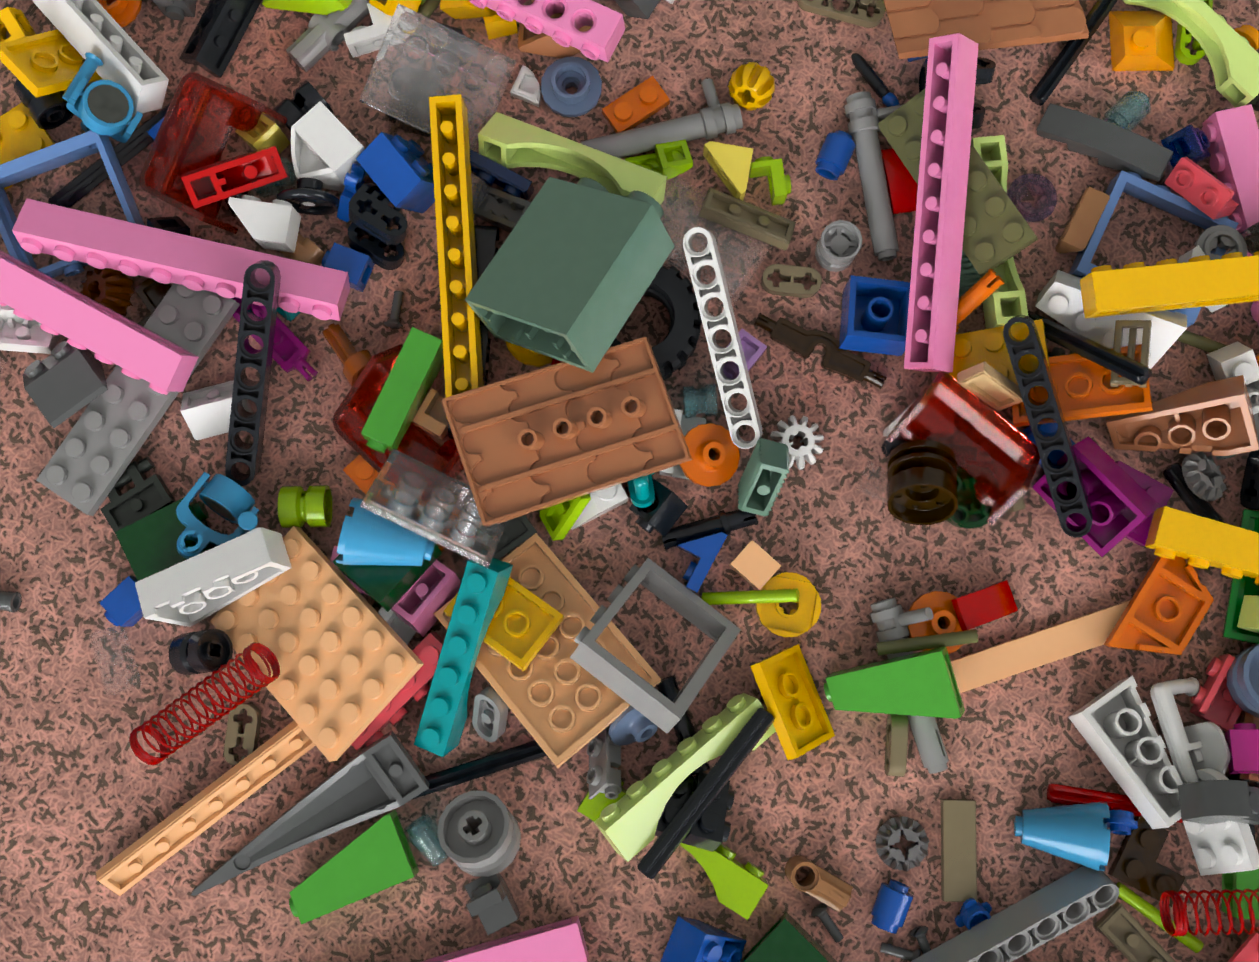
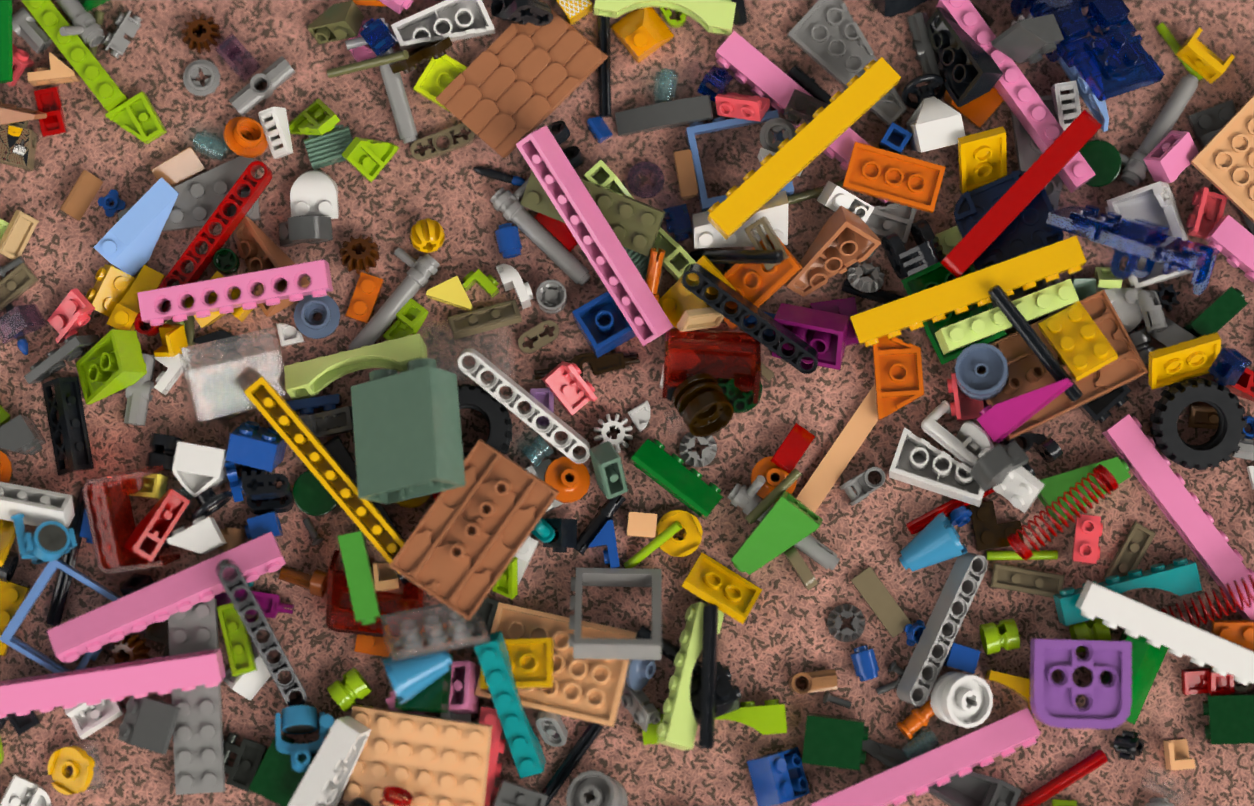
camera: 40 degrees left, 0 degrees up
(218, 374) = (236, 641): none -> lime tile
(420, 272) = (312, 496): none -> dark green tile
(664, 54) = (359, 254): none -> reddish brown gear
(786, 357) = (569, 387): none -> coral bracket
(809, 200) = (512, 279): none -> white slope
(830, 542) = (676, 479): none -> green slope
(840, 446) = (640, 415): none -> white tile
(864, 534) = (693, 458): none -> light grey gear
(1018, 107) = (599, 129): none -> blue slope
(1030, 704) = (862, 485): none -> light grey piece
(1037, 267) = (678, 222): none -> clear blue brick

